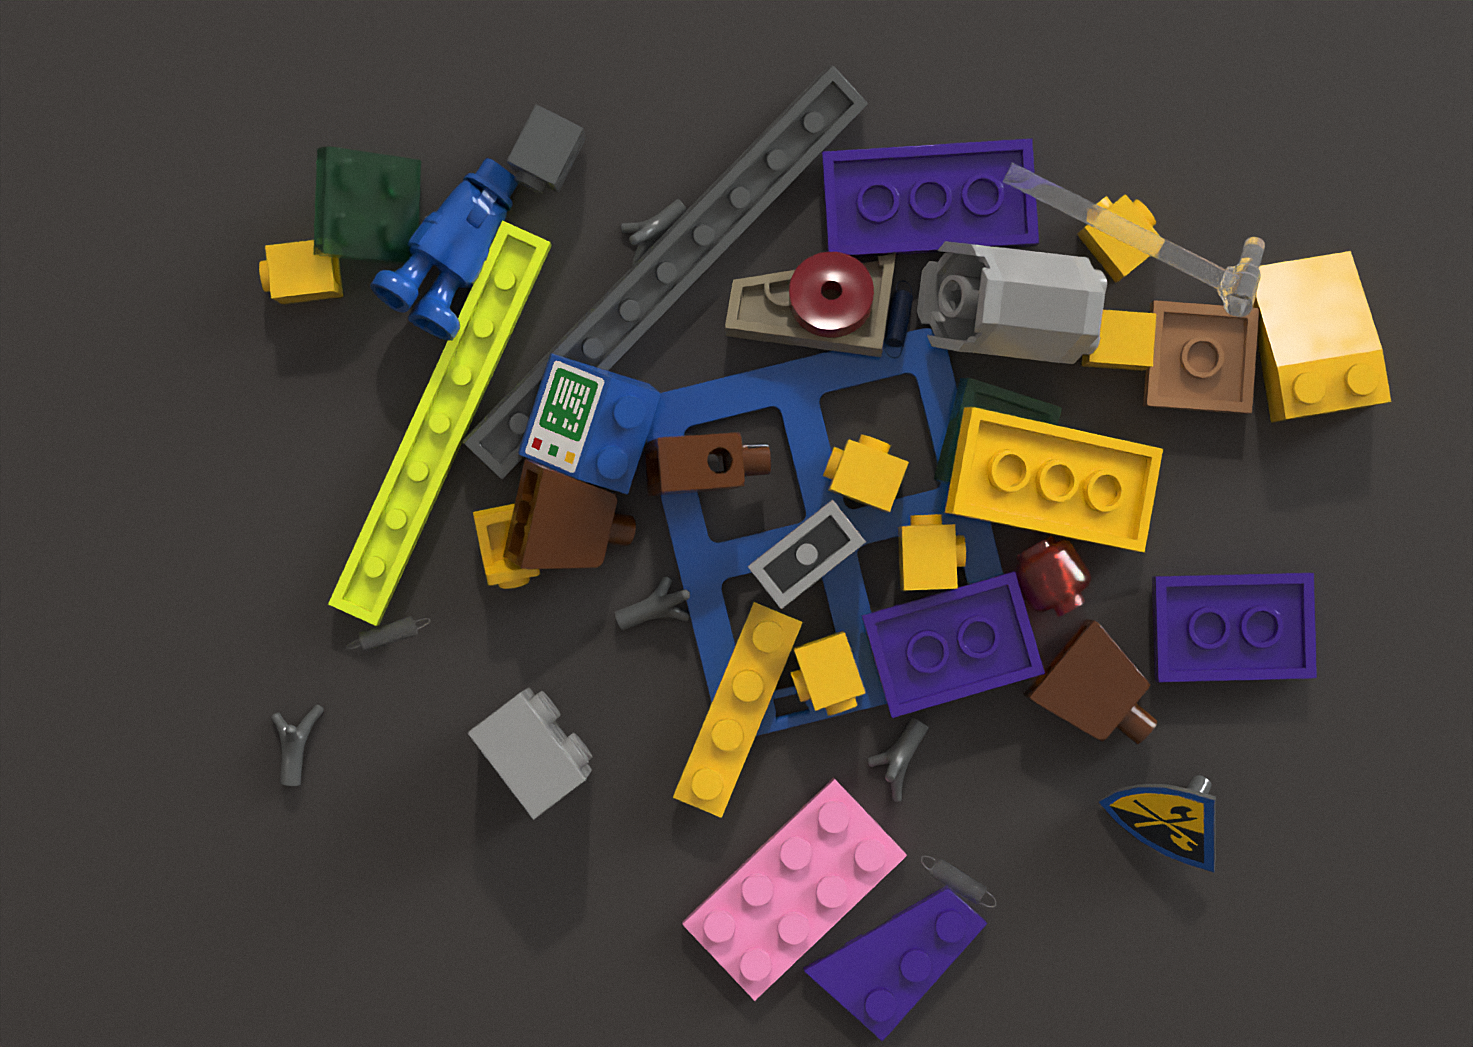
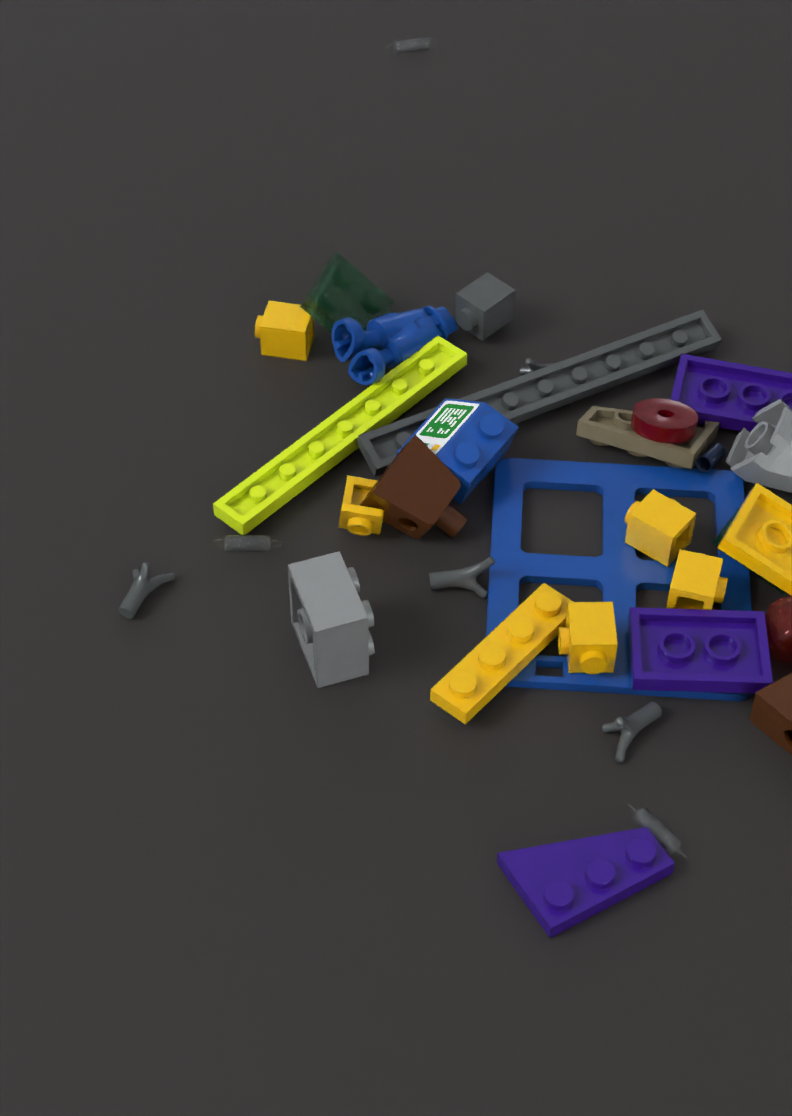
camera: 20 degrees right, 40 degrees down
(682, 467) = (532, 480): reddish brown torso -> none
(794, 889) = (508, 796): bright pink plate -> none
(806, 554) = (596, 552): light grey brick -> none

